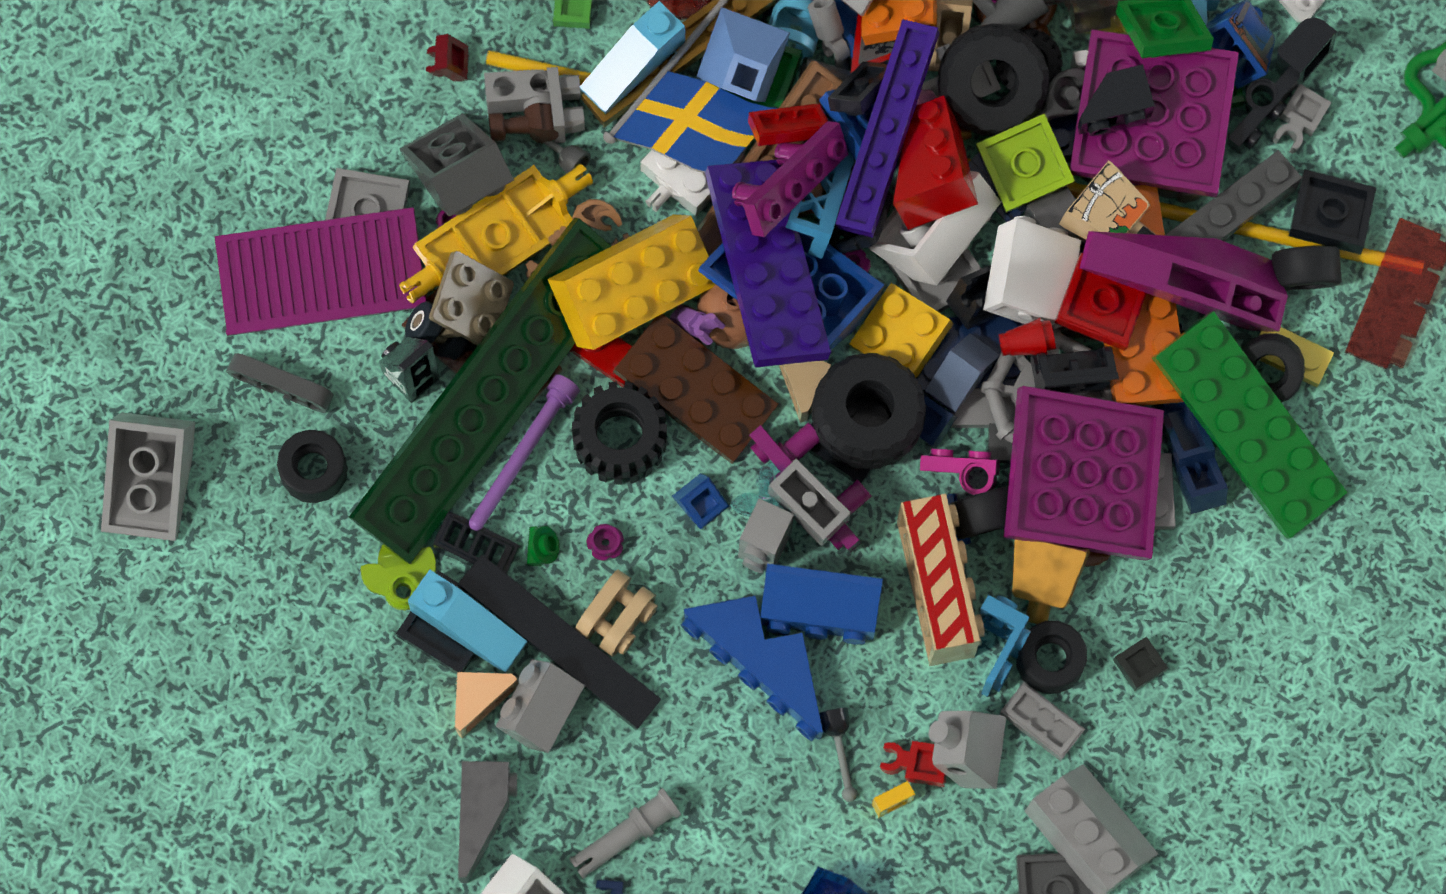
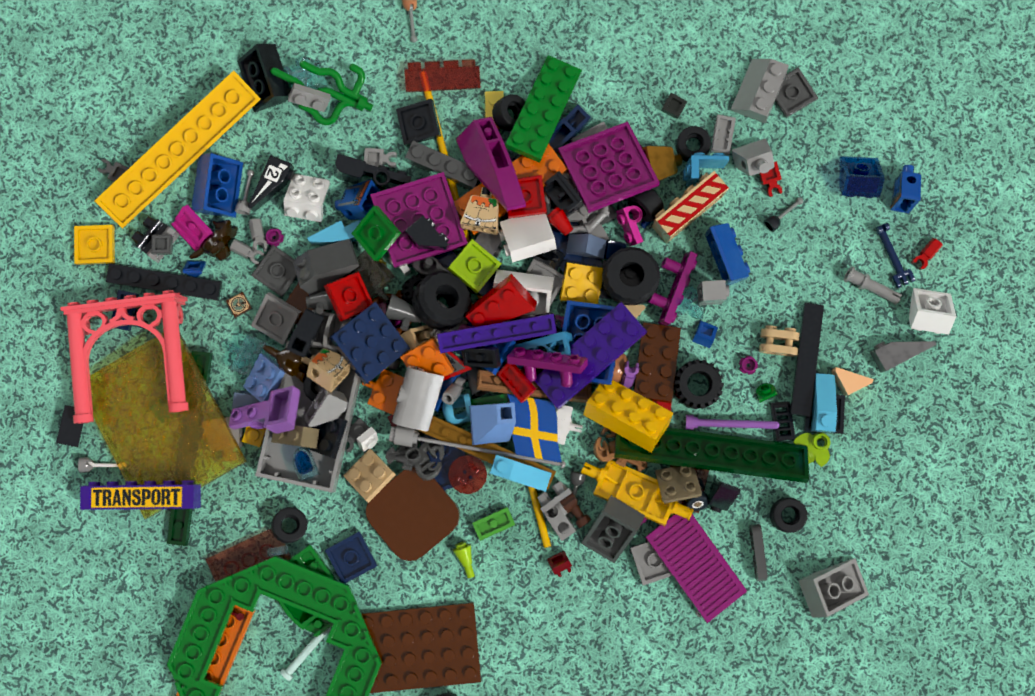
camera: 115 degrees left, 10 degrees up
(539, 705) = (841, 351): light grey brick -> none
(773, 664) = (763, 261): blue slope -> none
(809, 501) = (692, 277): light grey brick -> none
(893, 799) = (793, 179): yellow tile -> none
(1307, 267) = (453, 119): black tyre -> none

